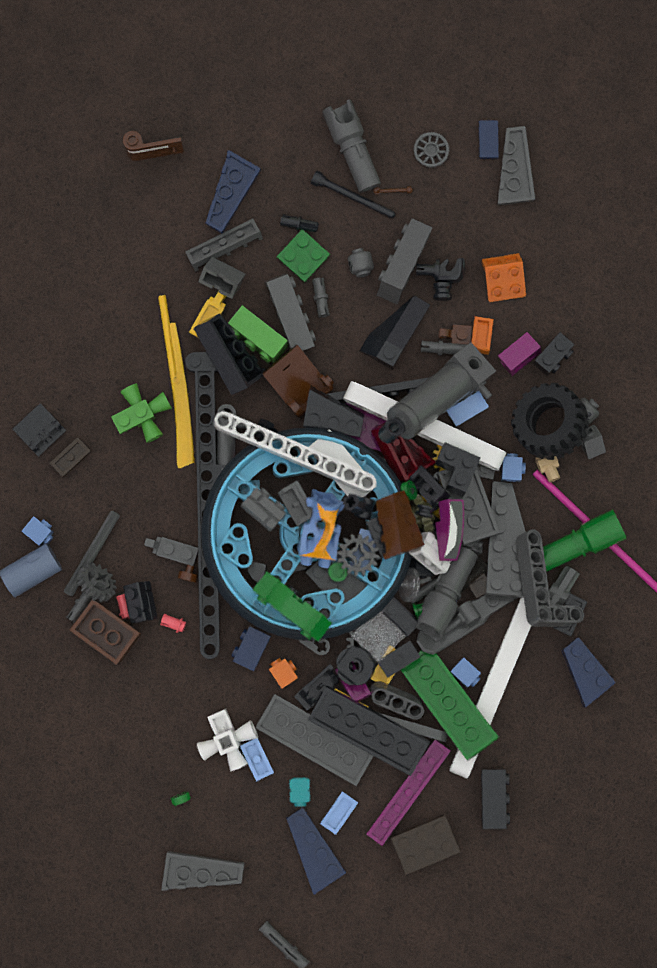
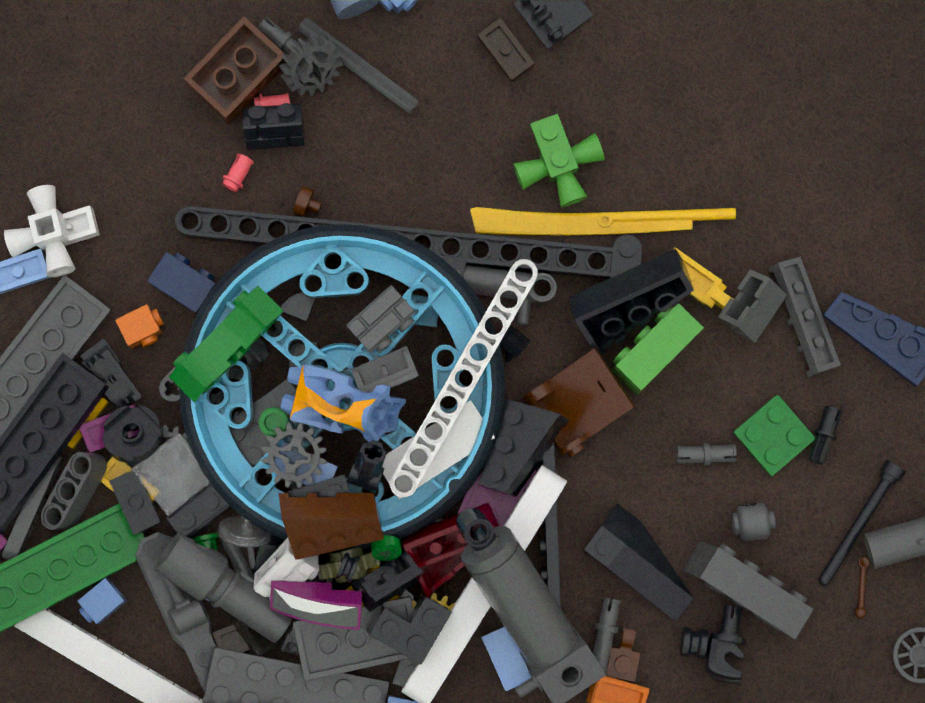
camera: 95 degrees right, 0 degrees up
(173, 550) = (347, 185): dark grey hinge -> none
(289, 311) = (686, 402): dark grey wedge -> none

